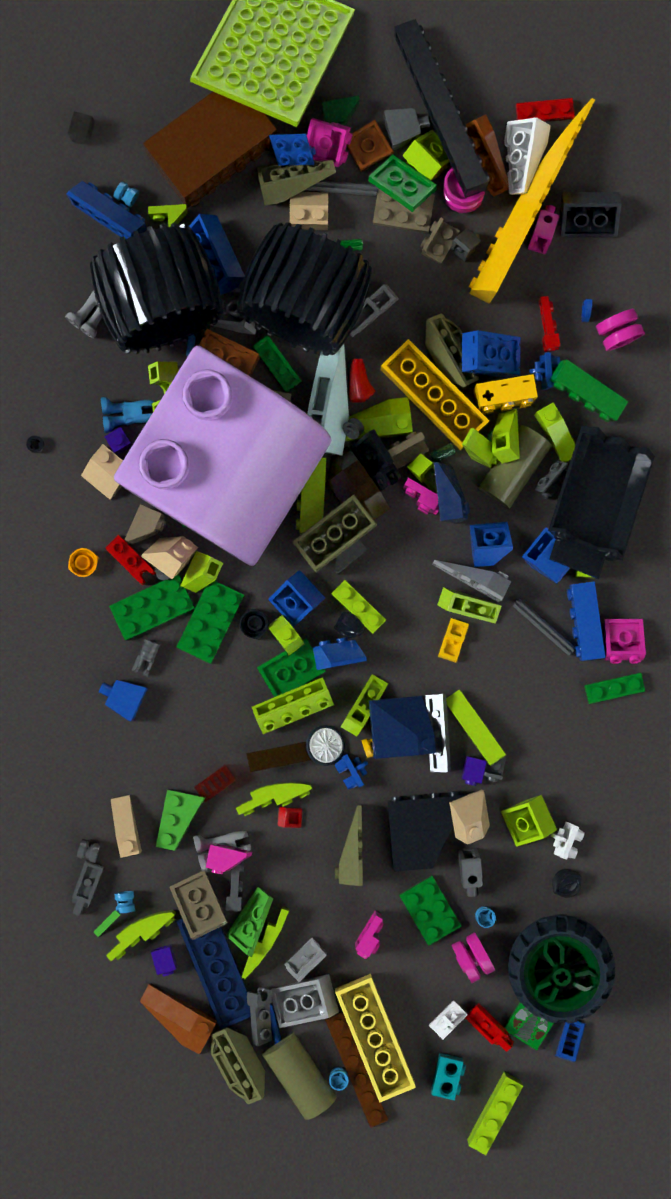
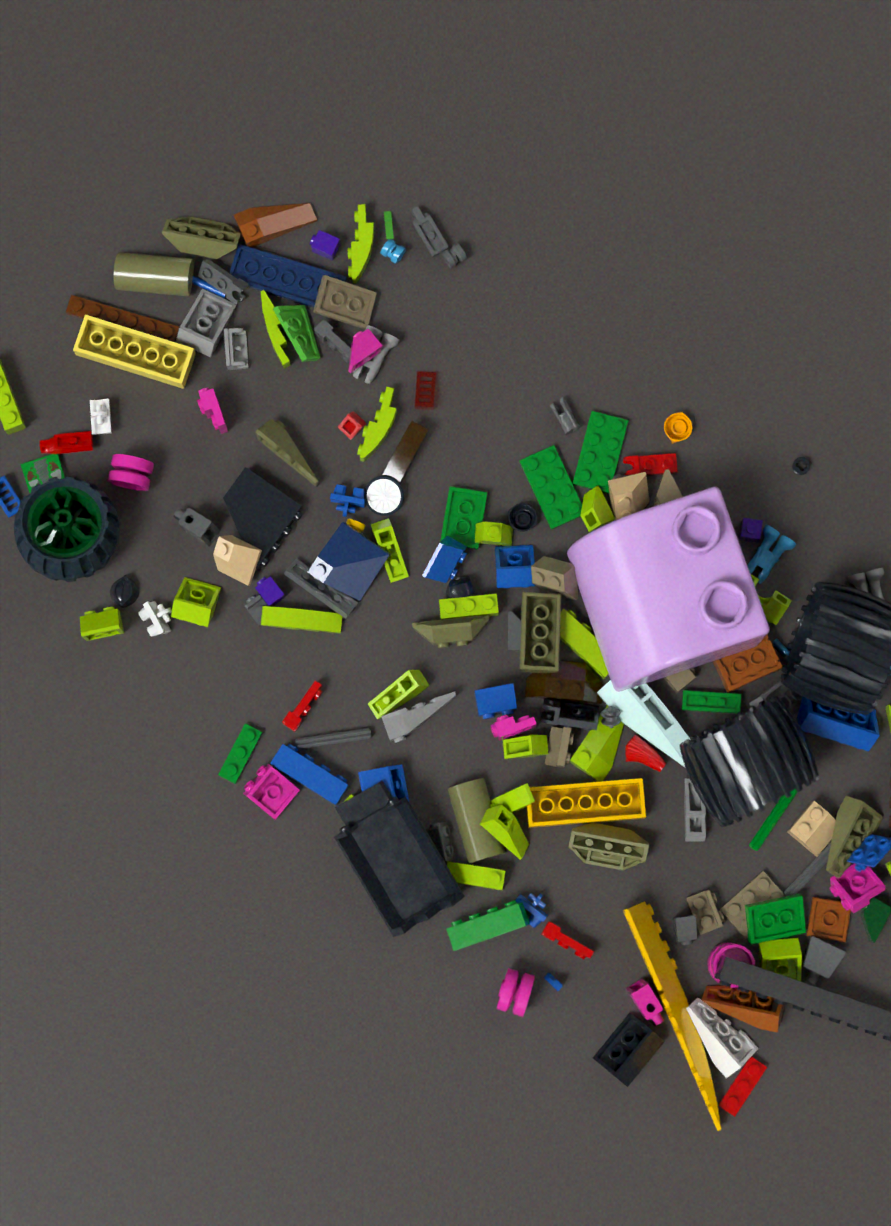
camera: 135 degrees right, 5 degrees down
(101, 471) = (739, 501): tan slope -> none
(123, 697) = (547, 374): blue torso -> none
(125, 826) = (448, 296): tan slope -> none
(176, 817) = (424, 341): bright green wing -> none
(280, 558) = (555, 577): none -> dark tan slope
(292, 705) = (435, 494): lime brick -> none
(336, 1080) = (126, 297): dark azure wheel -> none
(387, 604) = (451, 631): none -> olive wedge
(413, 526) = (495, 700): none -> blue slope
(430, 910) = (192, 472): green plate -> none
(442, 453) = (534, 772): clear green pin -> none
(442, 1076) = (62, 379): teal brick -> none
(451, 499) = (498, 745): dark blue slope -> none
(453, 640) = (382, 660): yellow slope -> none
(485, 920) = (149, 507): dark azure wheel -> none
(490, 354) = (580, 871): blue piece -> none
(490, 543) = (433, 750): blue slope -> none
(505, 394) = (539, 858): yellow piece -> none
(554, 669) = (293, 719): none -> red plate
(608, 879) = (101, 624): none -> lime slope

